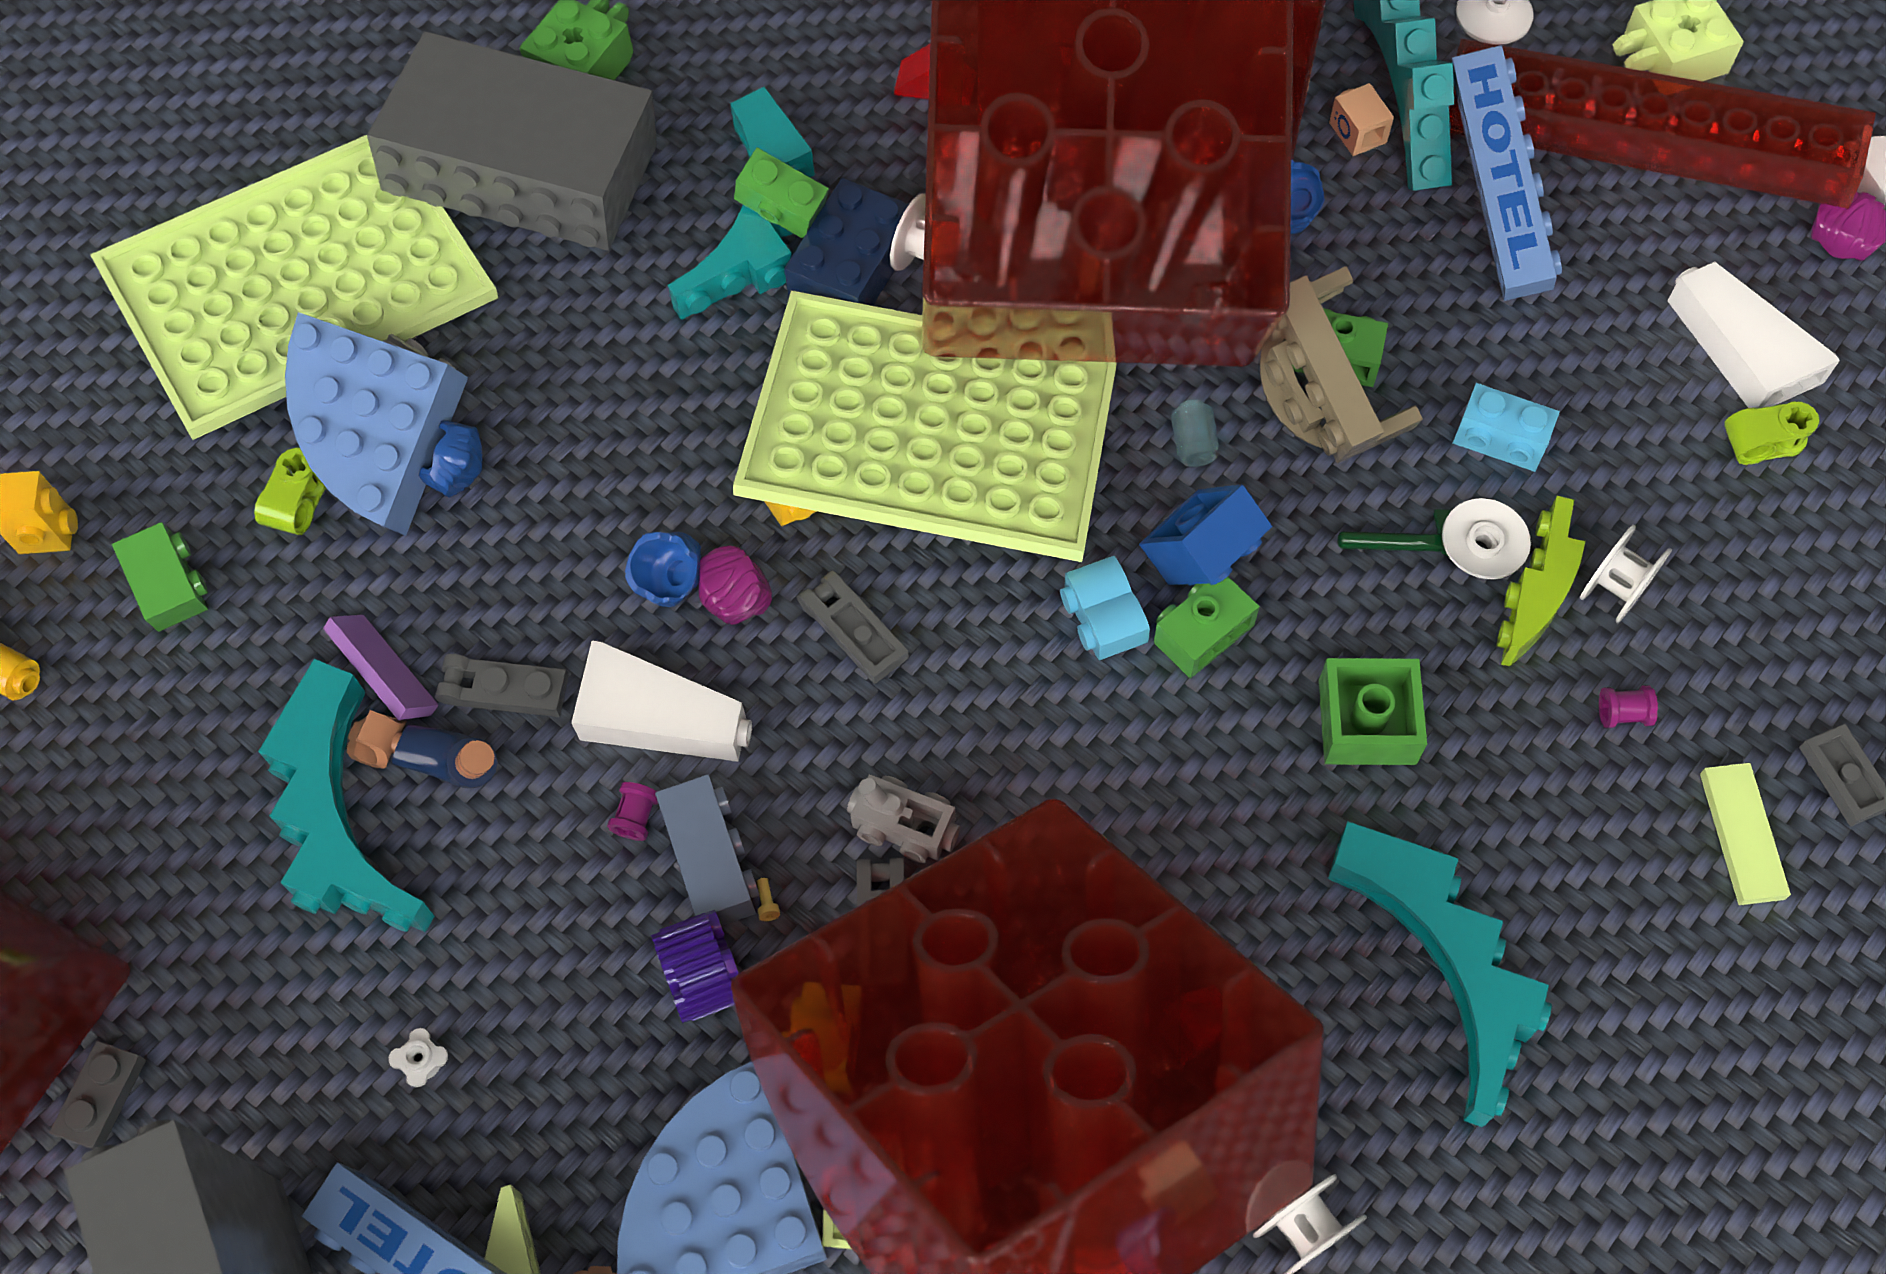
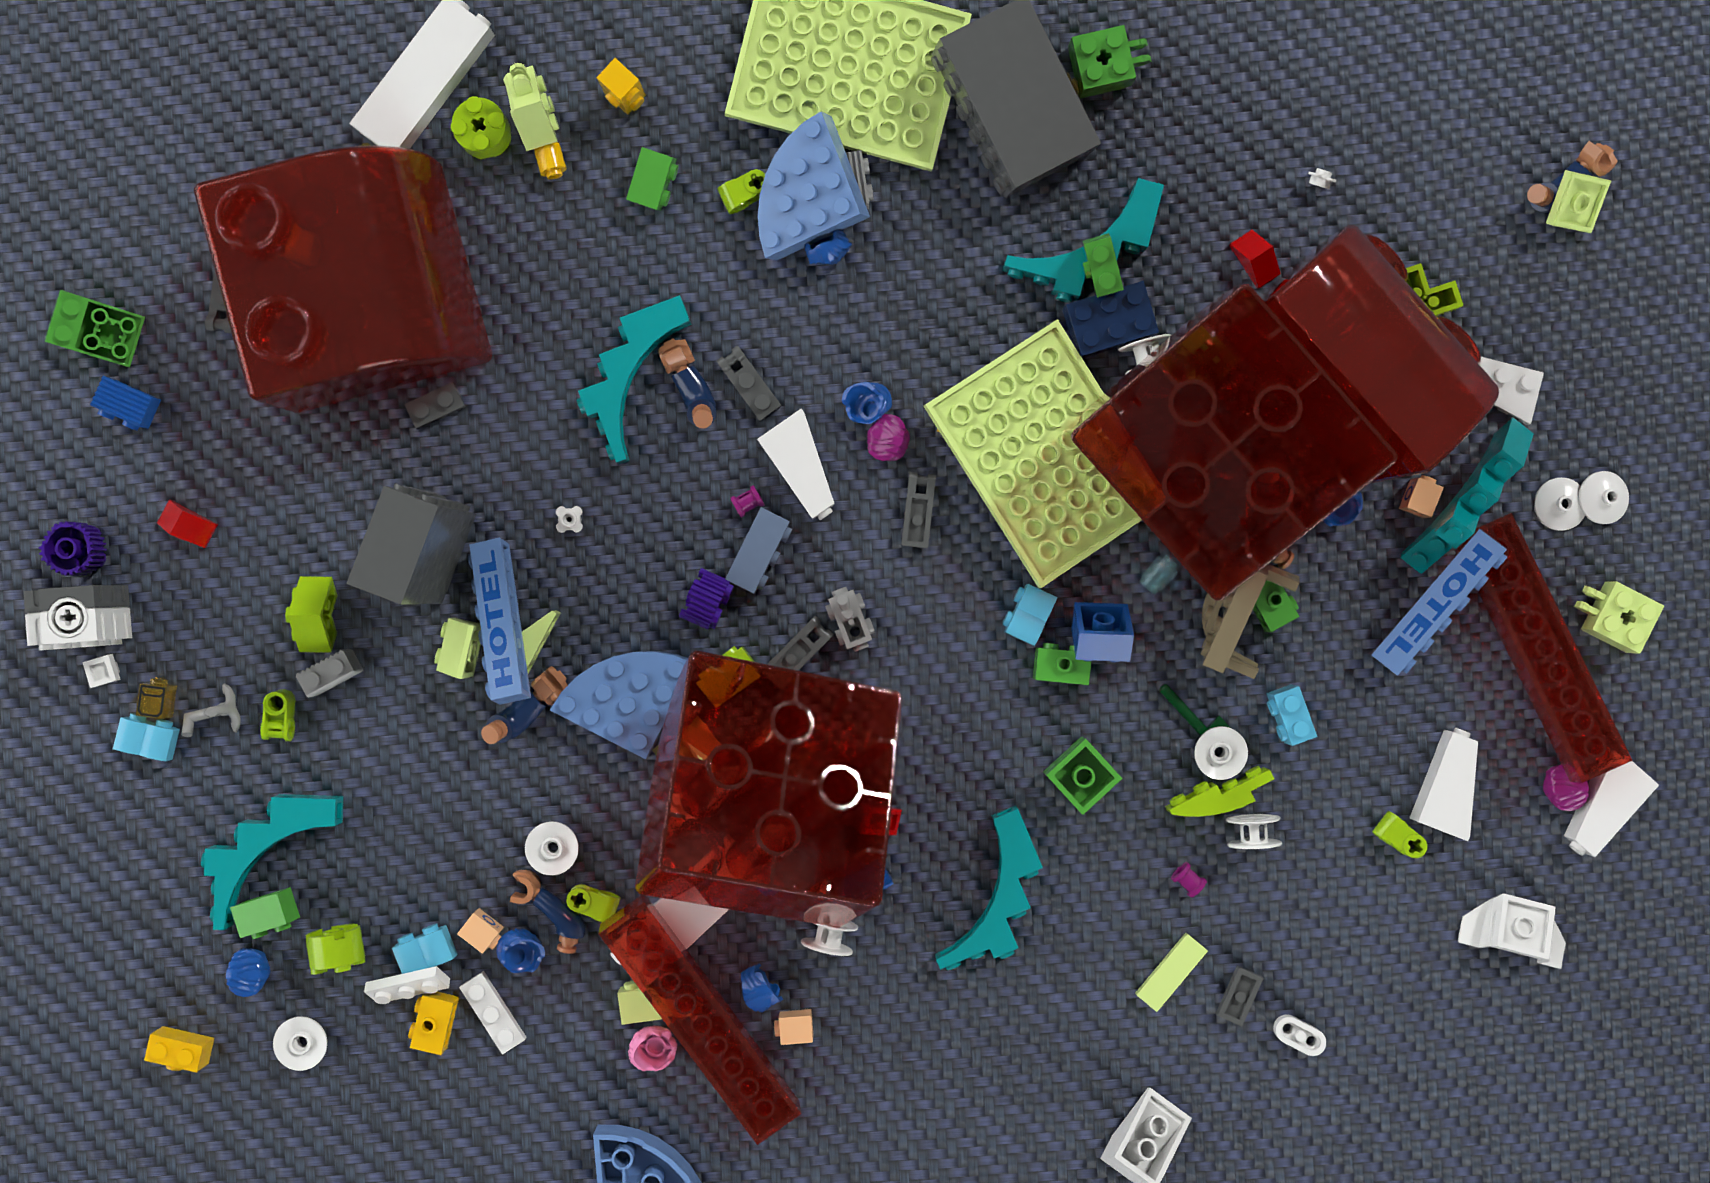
camera: 45 degrees right, 25 degrees up
(380, 667) = (706, 322): medium lavender tile -> none
(768, 910) = (760, 599): light yellow piece -> none

